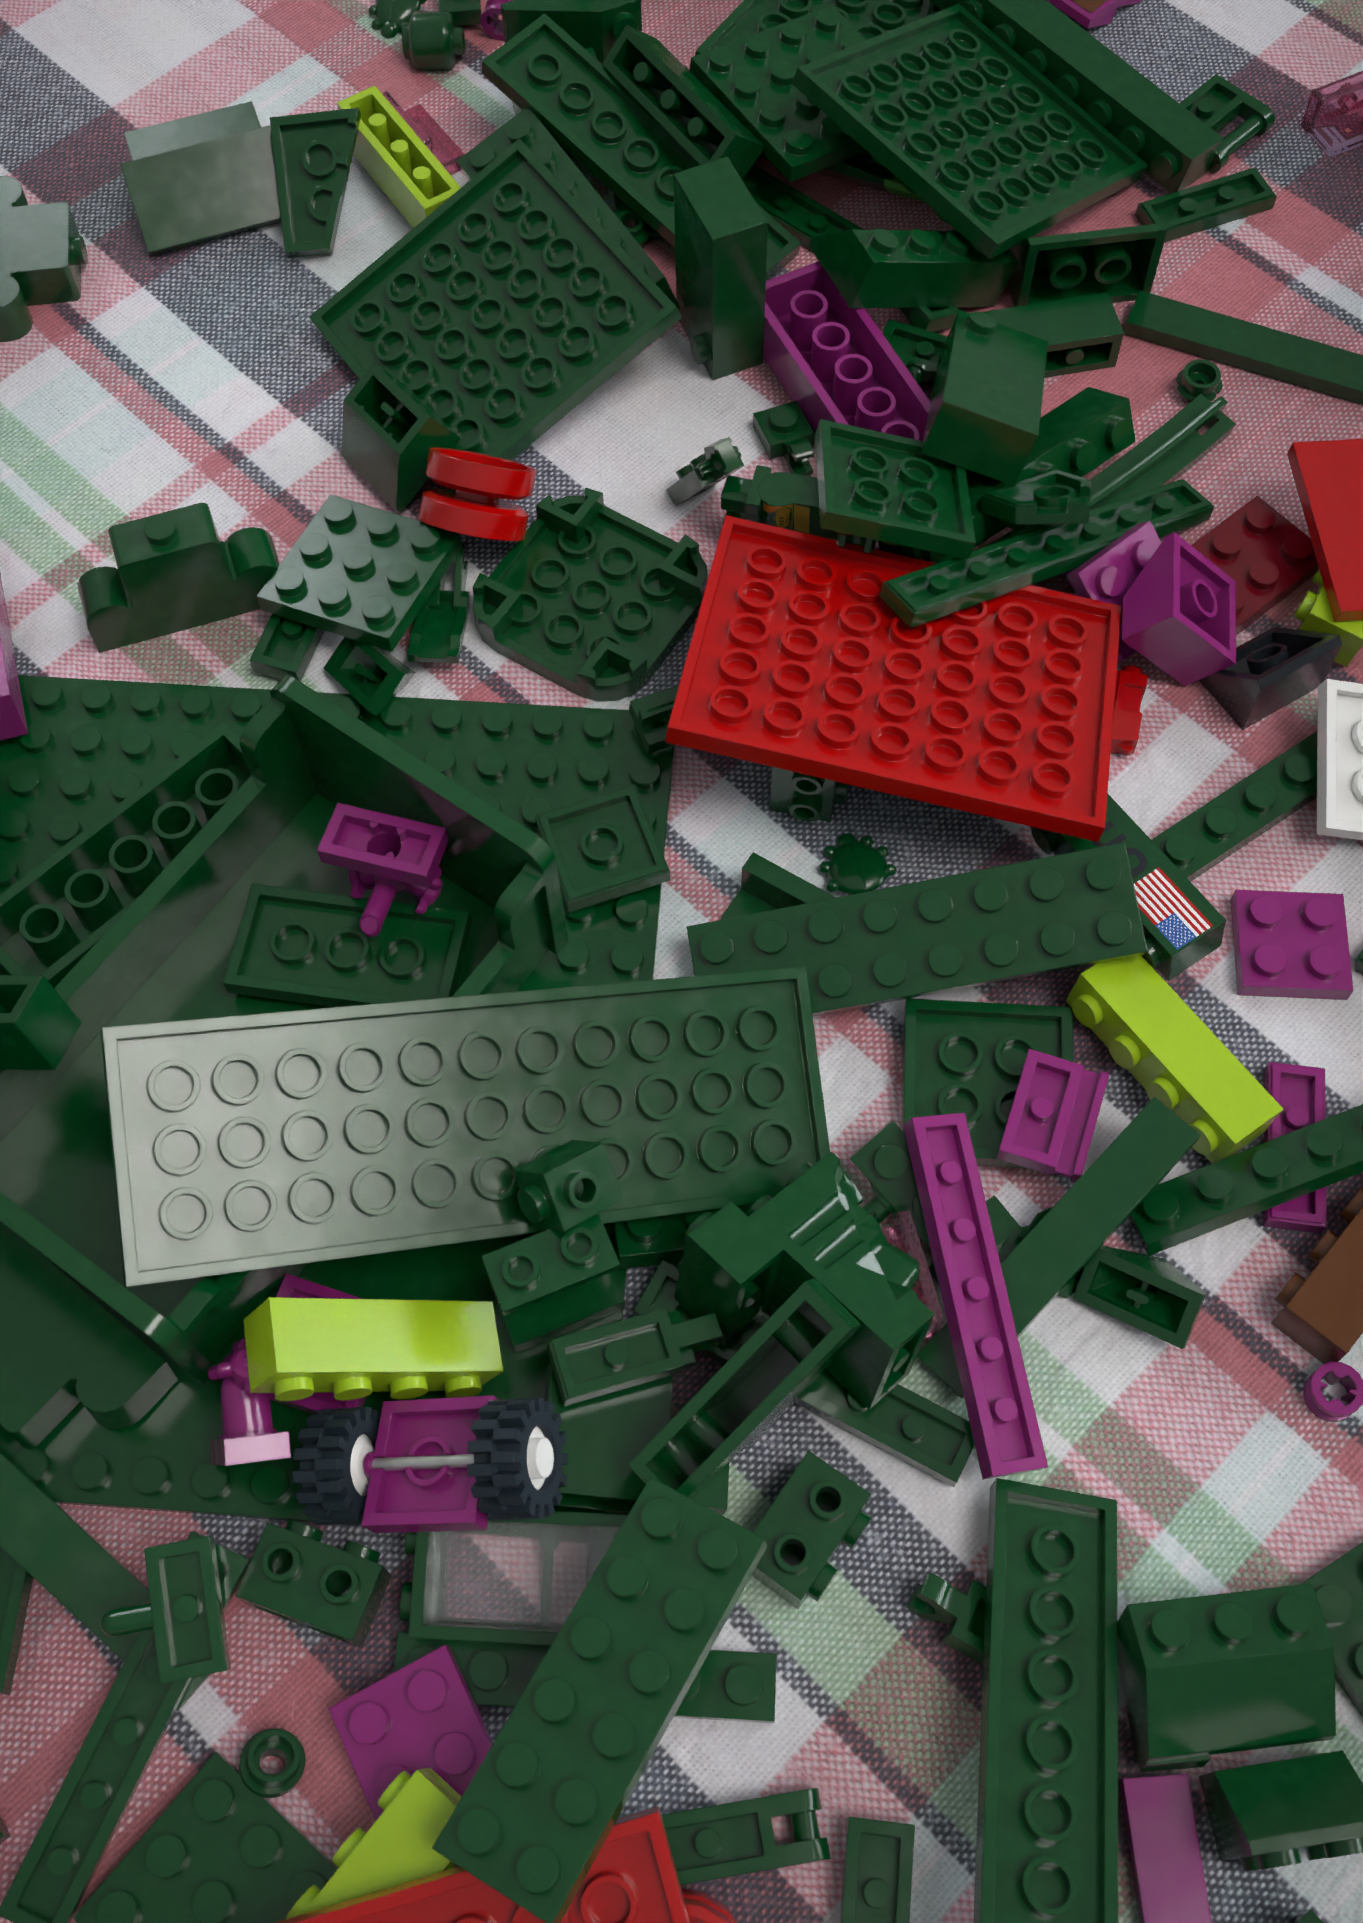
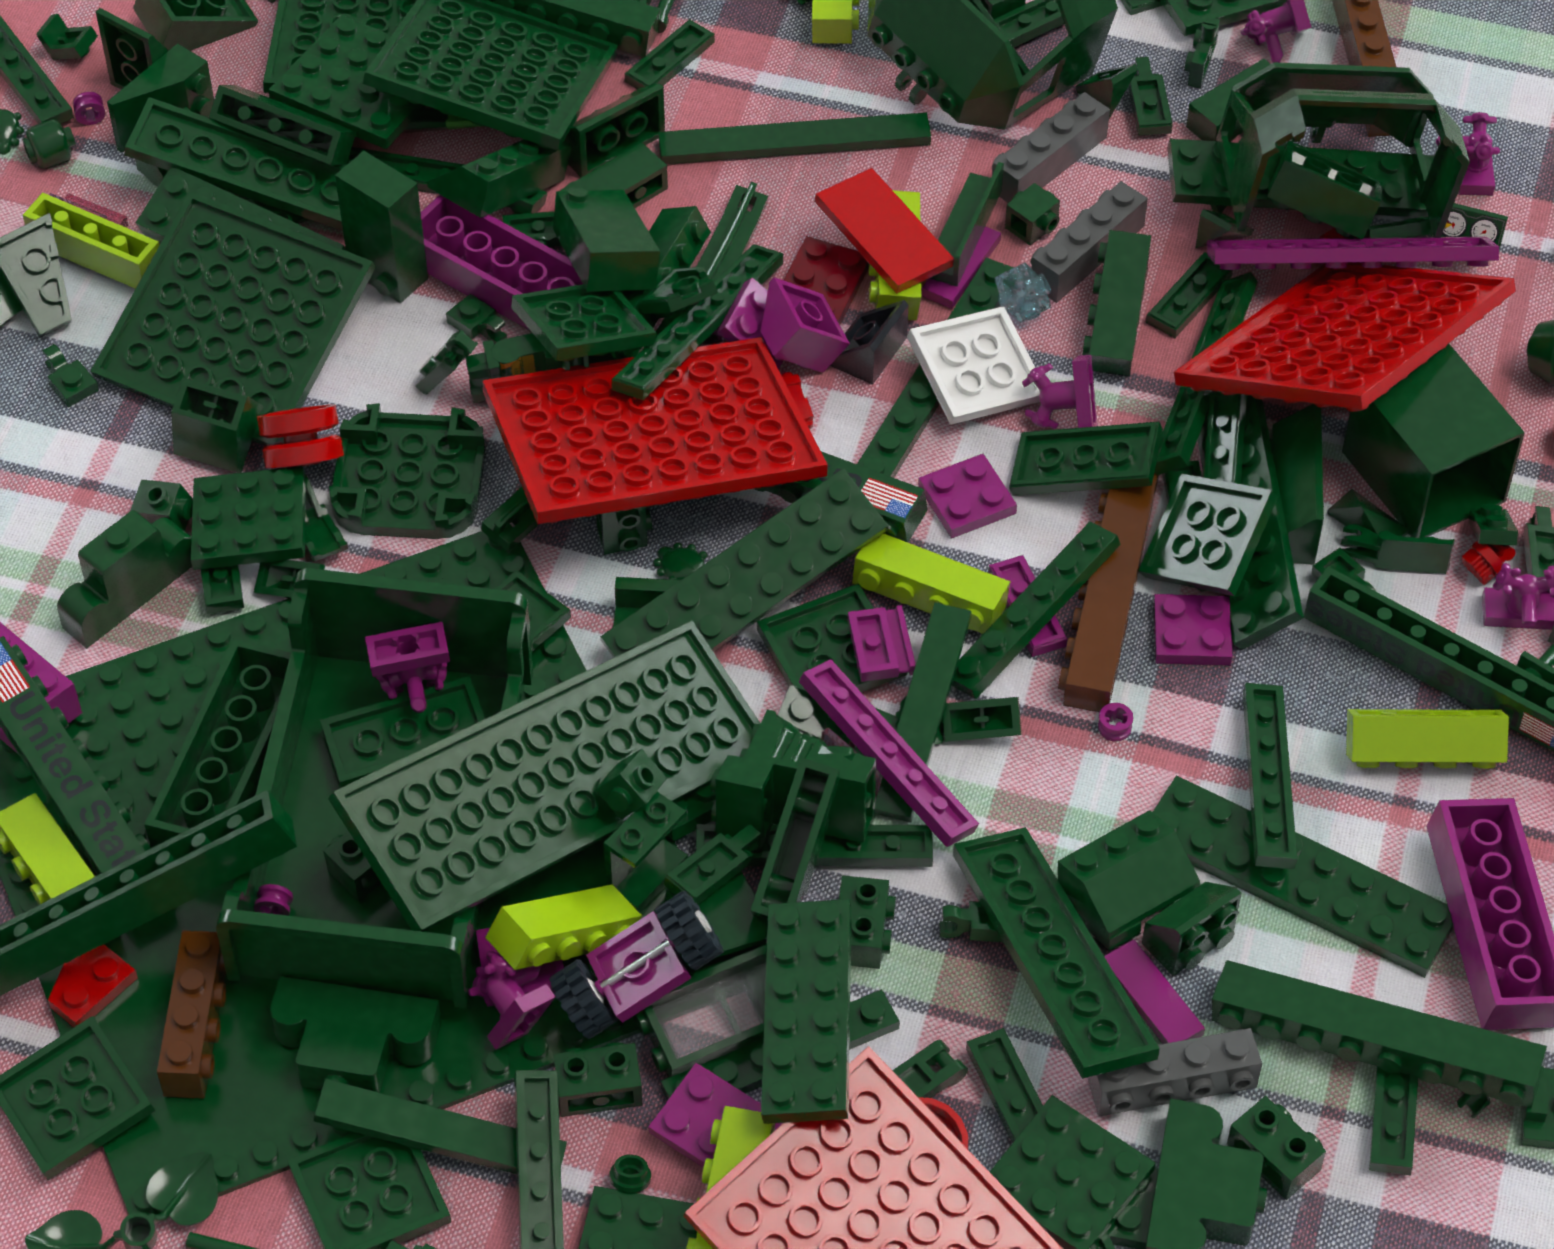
camera: 30 degrees left, 10 degrees down
(44, 1111) = (273, 899): none -> magenta bush
(182, 1610) = (539, 1104): dark green plate -> none
(276, 509) = (162, 500): none -> dark green brick
(286, 319) = (69, 381): none -> dark green plate
(1199, 378) = (728, 176): dark green plate -> none

